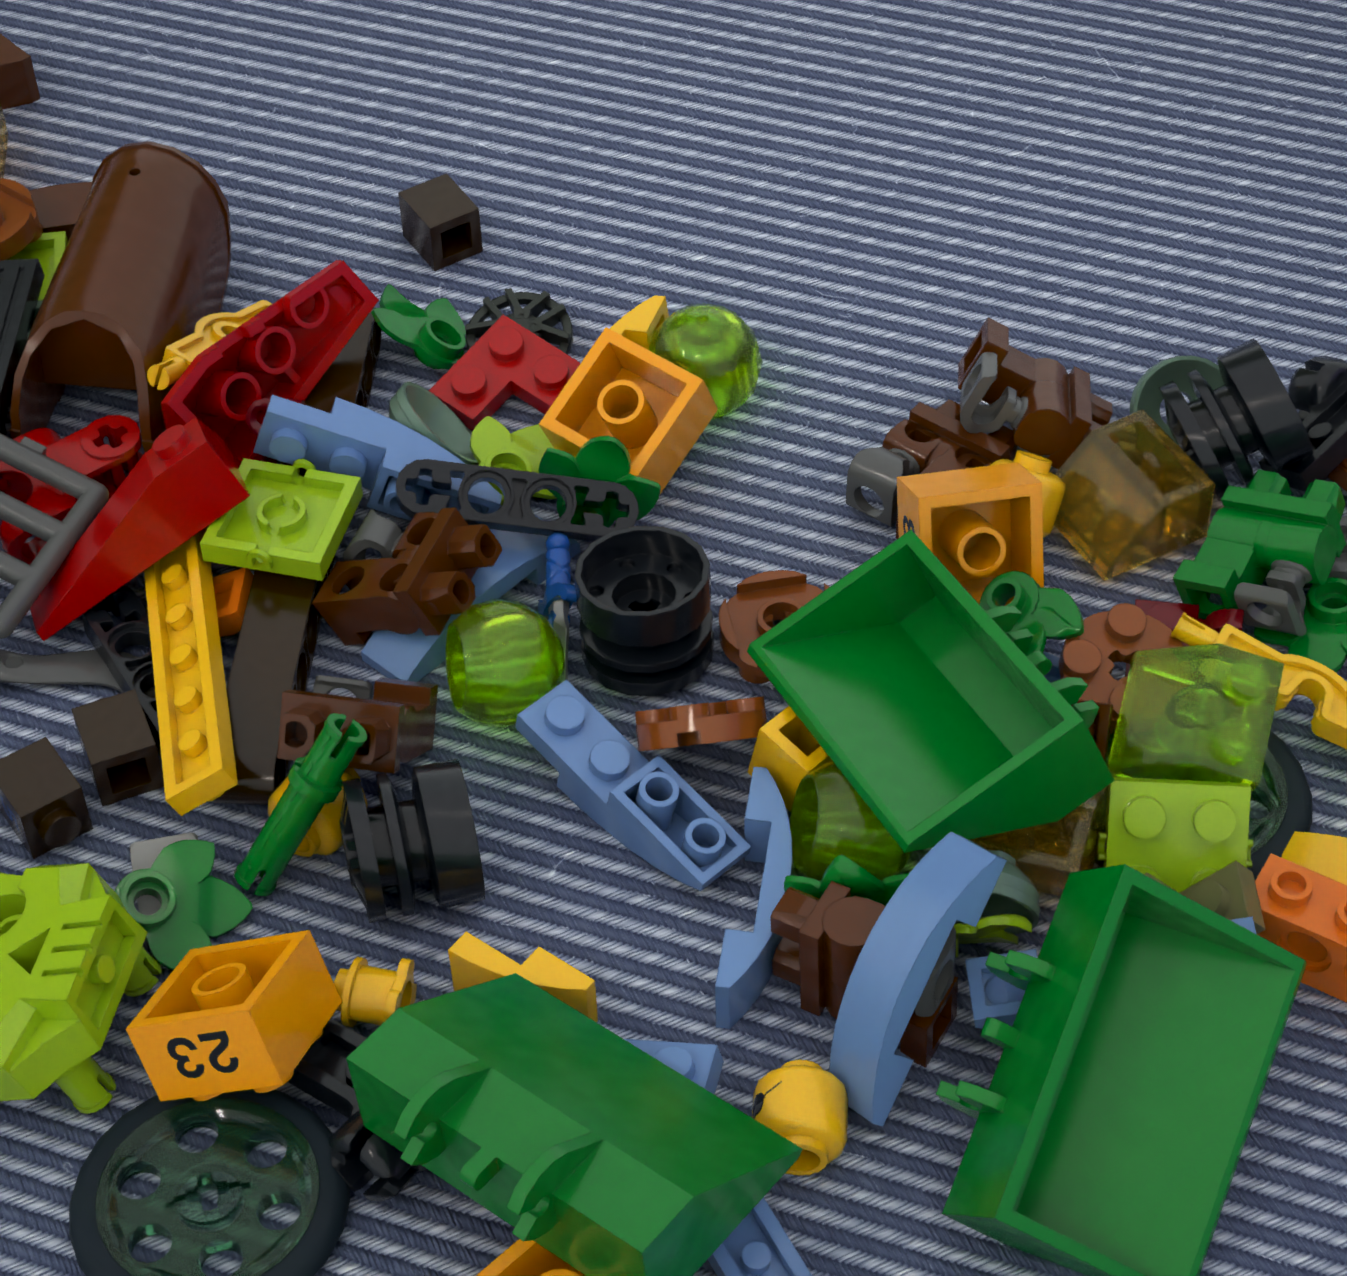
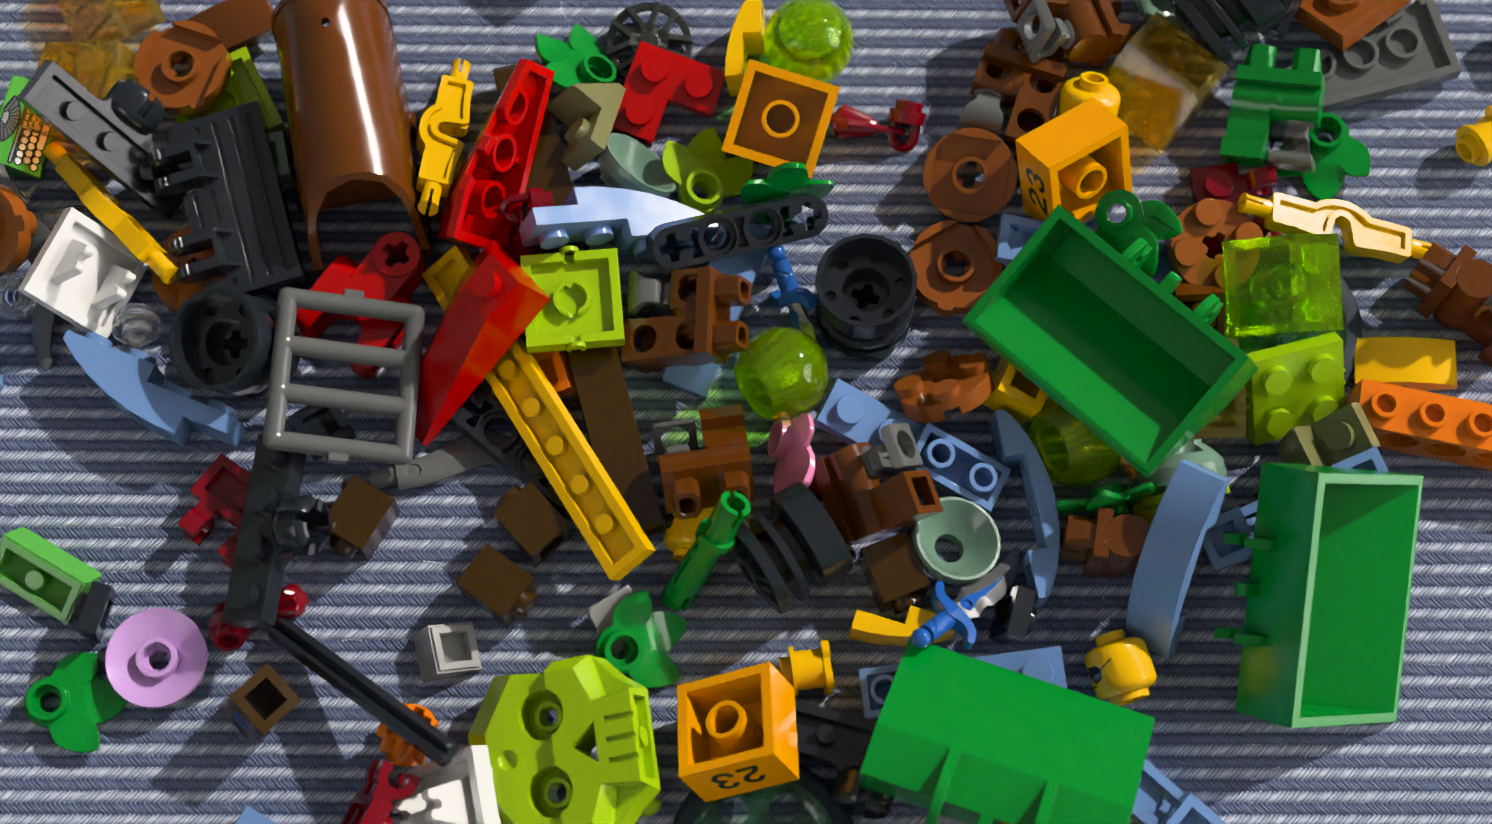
camera: 25 degrees left, 25 degrees up
(400, 354) = (590, 115): none -> olive slope
(480, 742) = (790, 445): none -> bright pink plate
(542, 912) = (894, 573): none -> dark brown brick
(546, 799) = (852, 487): none -> reddish brown hips
(594, 969) = (968, 604): none -> piece
(640, 883) = (970, 531): none -> sand green piece
(682, 1008) = (1014, 616): none -> black plate
(794, 459) = (852, 123): none -> dark red piece
(828, 502) = (991, 158): none -> dark orange plate

